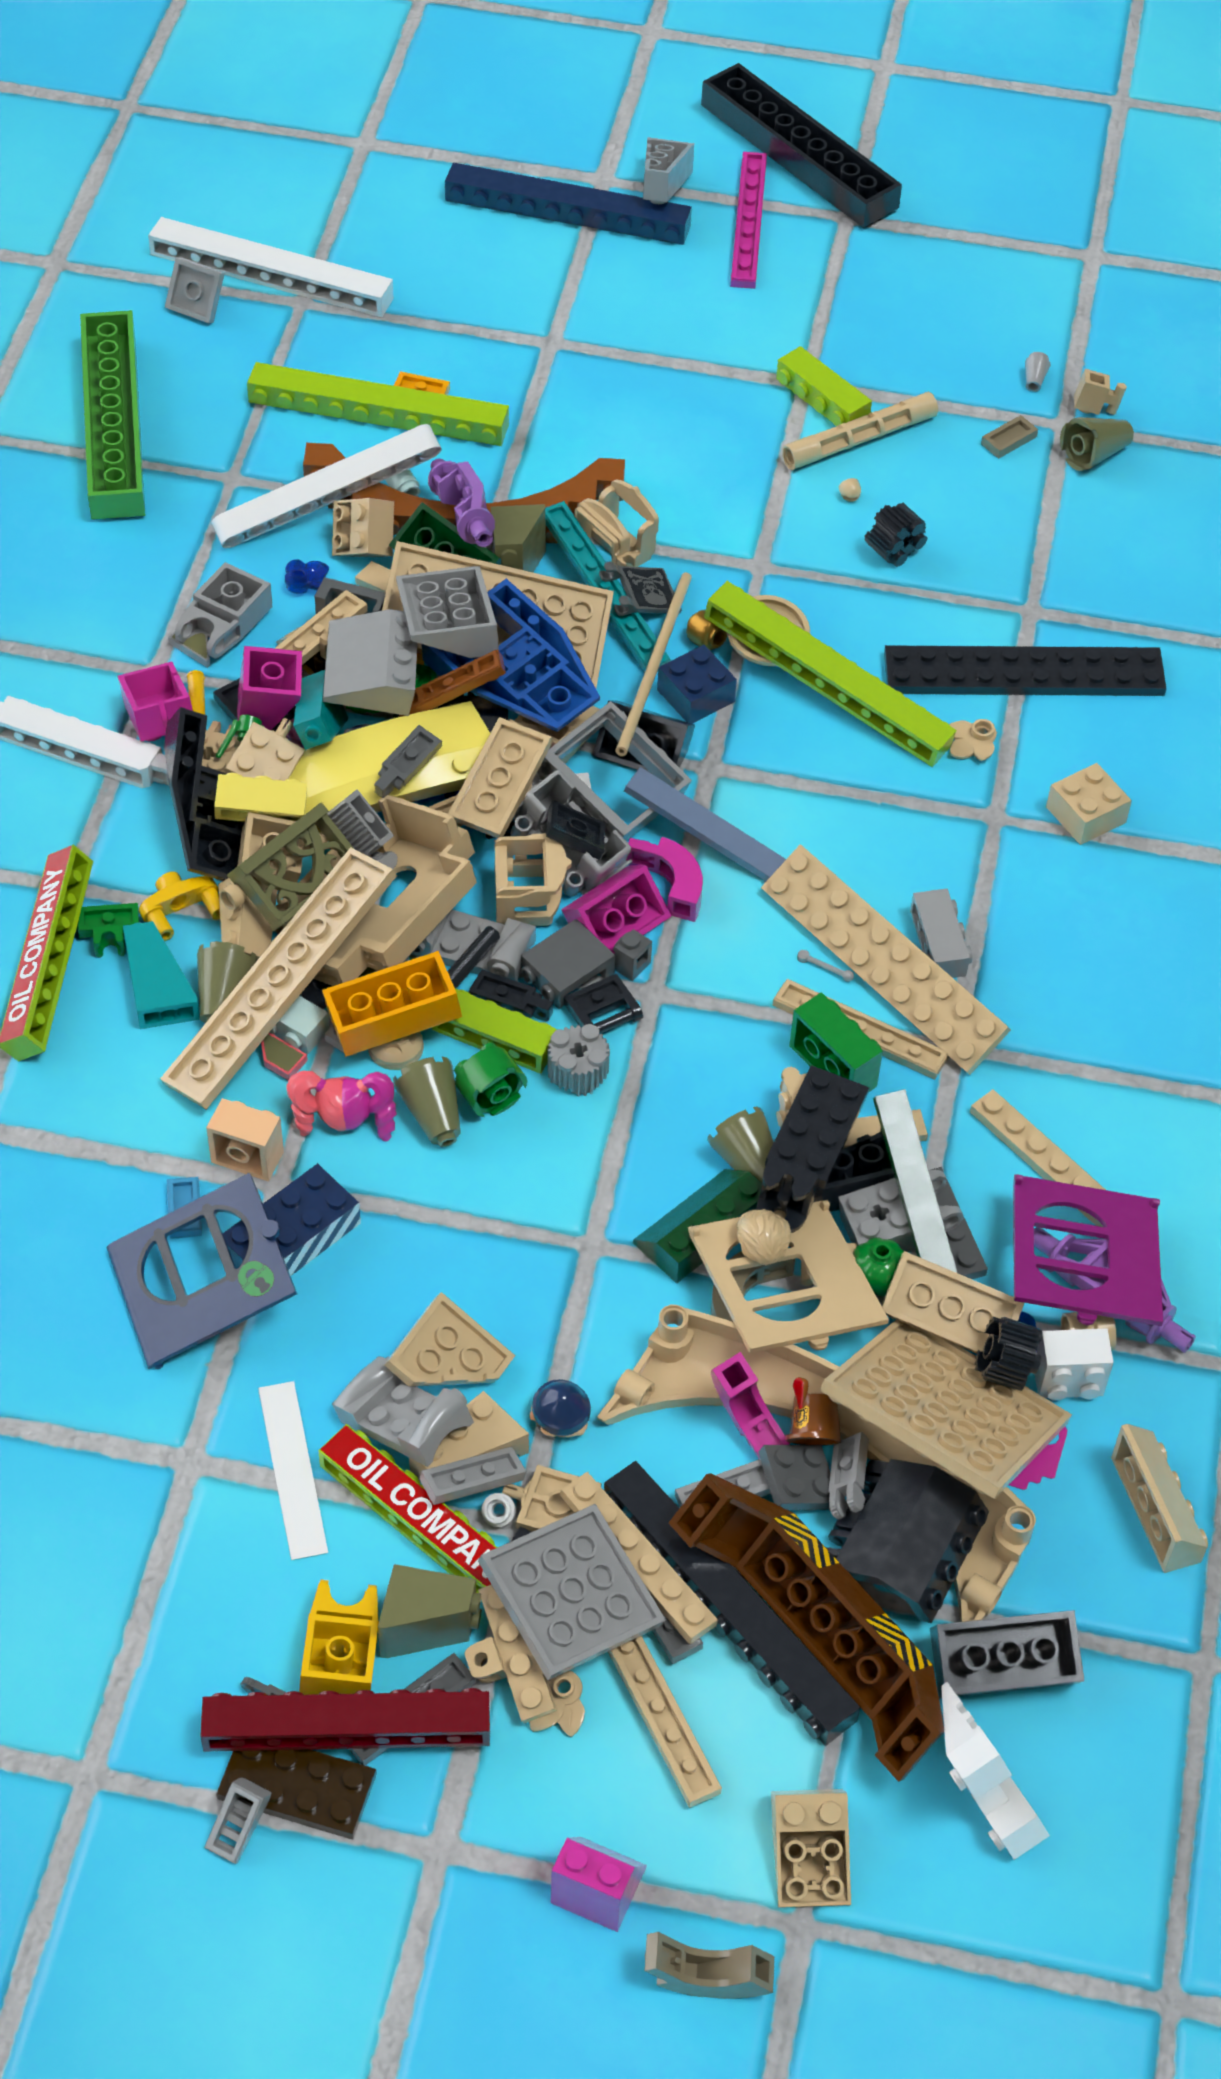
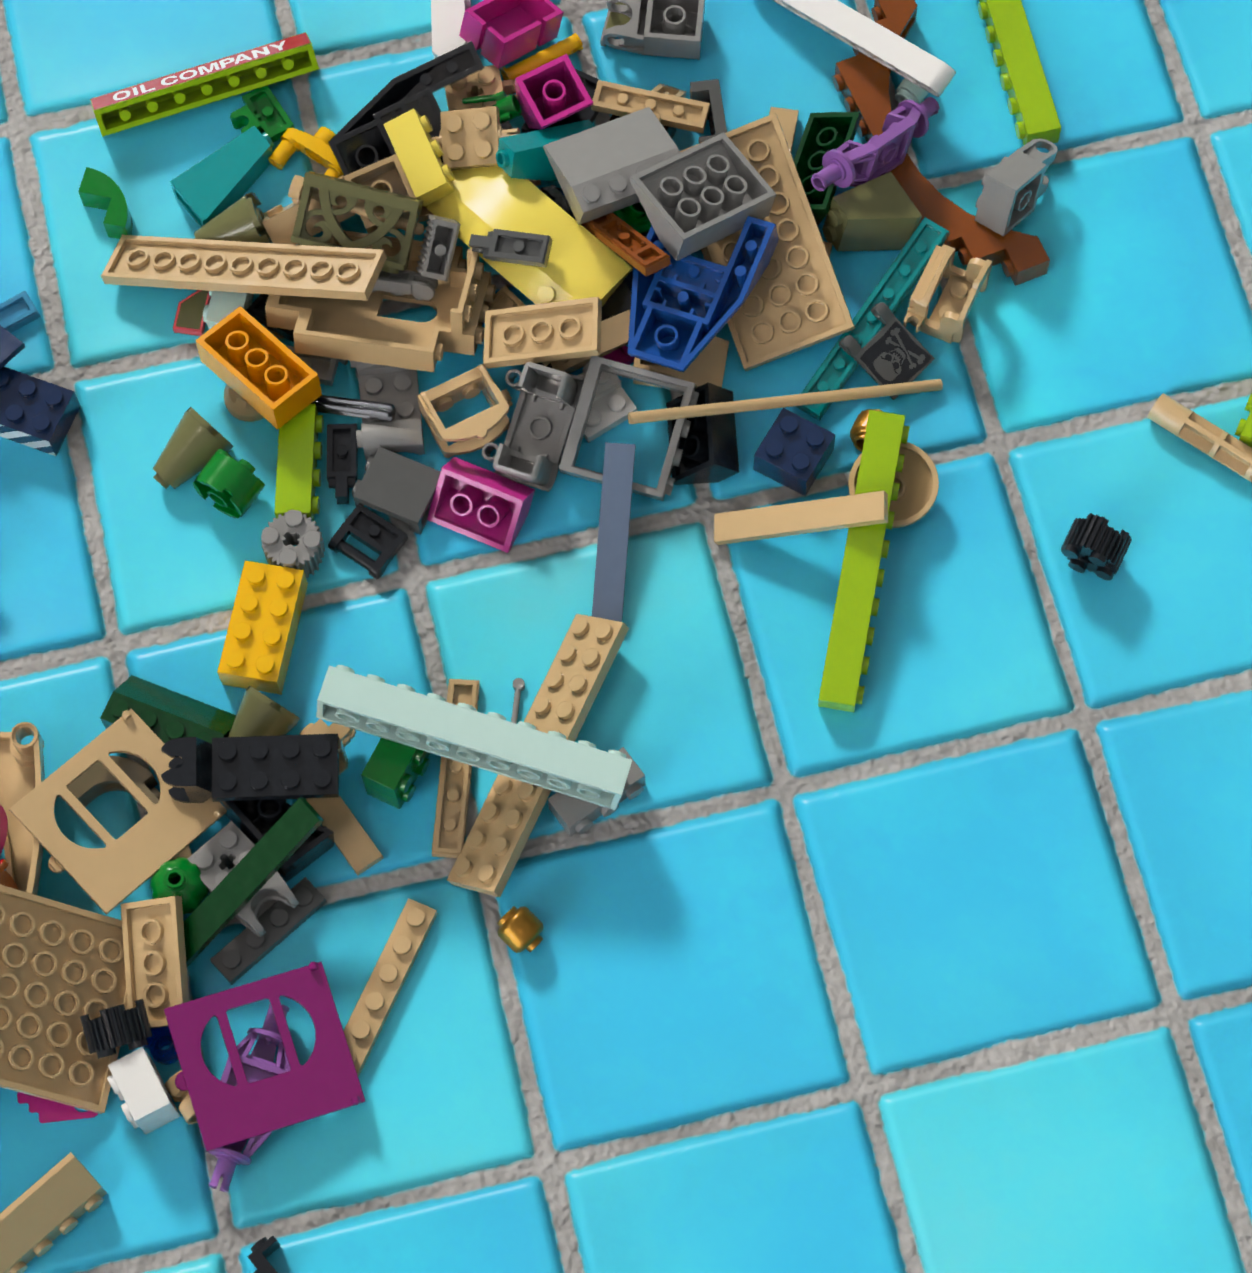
camera: 70 degrees right, 15 degrees up
(108, 1072) = (103, 193): none -> green brick
(245, 1139) = (78, 326): light nougat brick -> none
(304, 576) = (754, 70): clear blue plate -> none
(342, 1102) = (157, 380): hair -> none
(363, 527) = (821, 82): tan slope -> none
(422, 383) = (1051, 44): light orange plate -> none
(552, 445) = (1014, 186): none -> light grey brick
(575, 829) = (530, 424): black plate -> none
(628, 950) = (435, 533): dark grey brick -> none
(647, 1113) = (262, 627): none -> yellow brick
(678, 867) = (547, 547): dark pink arch -> none
(763, 1236) = (140, 771): tan hair -> none
(770, 693) = (801, 518): none -> tan tile
(850, 489) = (1146, 482): tan hinge -> none
(869, 966) = (473, 737): none -> light aqua brick
(973, 739) = (864, 726): tan plate -> none
(1025, 670) = (993, 744): black plate -> none
(1042, 1034) = (520, 929): none -> pearl gold head
(1088, 803) = (833, 866): tan brick -> none

